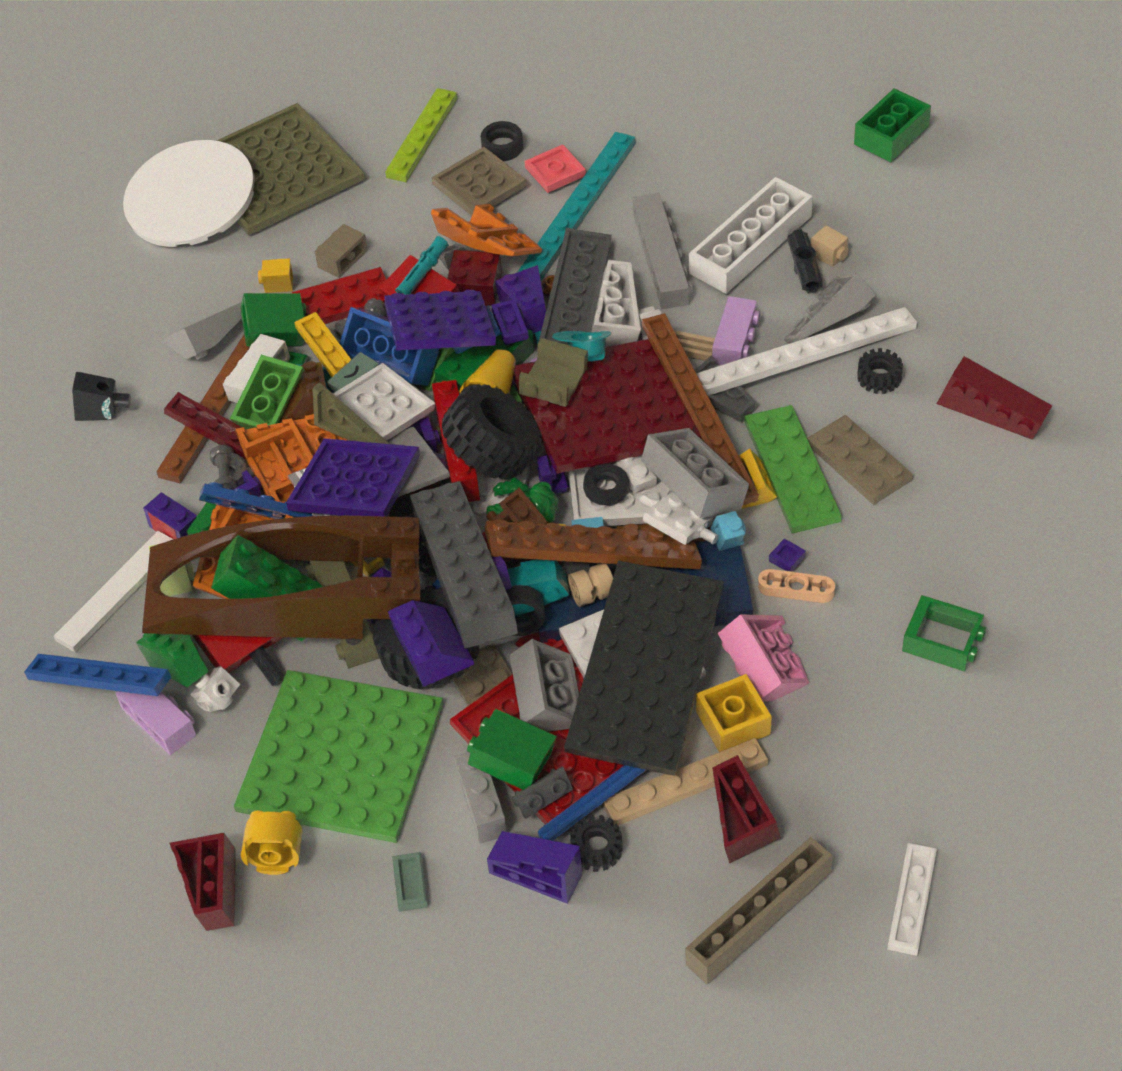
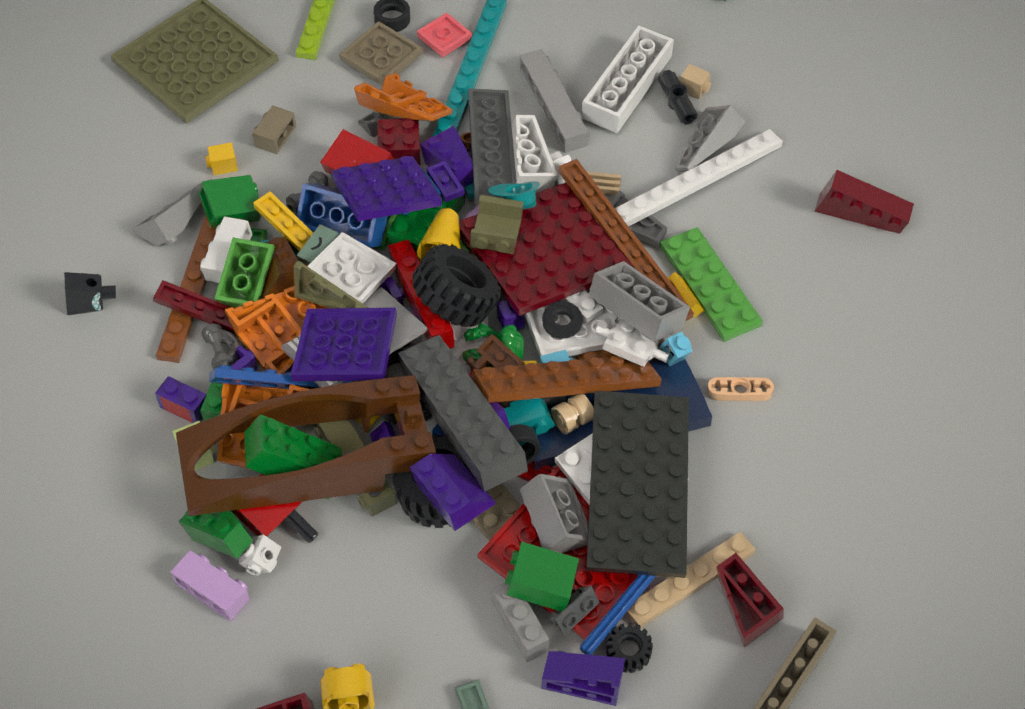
camera: 15 degrees left, 5 degrees up
(98, 674) = (150, 557): blue plate -> none
(108, 598) = (142, 476): white tile -> none
(189, 193) = (124, 90): white tile -> none
(334, 298) = (287, 170): red plate -> none
(341, 755) = (384, 600): bright green plate -> none
(428, 260) = (361, 132): teal pin -> none
(733, 713) = (719, 513): yellow brick -> none
(735, 330) = (635, 166): lavender brick -> none
(764, 654) = (731, 458): bright pink wedge -> none
(787, 555) = (726, 363): dark purple plate -> none
(859, 459) = (764, 269): dark tan plate -> none
(880, 381) = (763, 179): black tyre -> none
(912, 899) = (904, 656): white tile -> none
(948, 615) = (879, 400): green window -> none

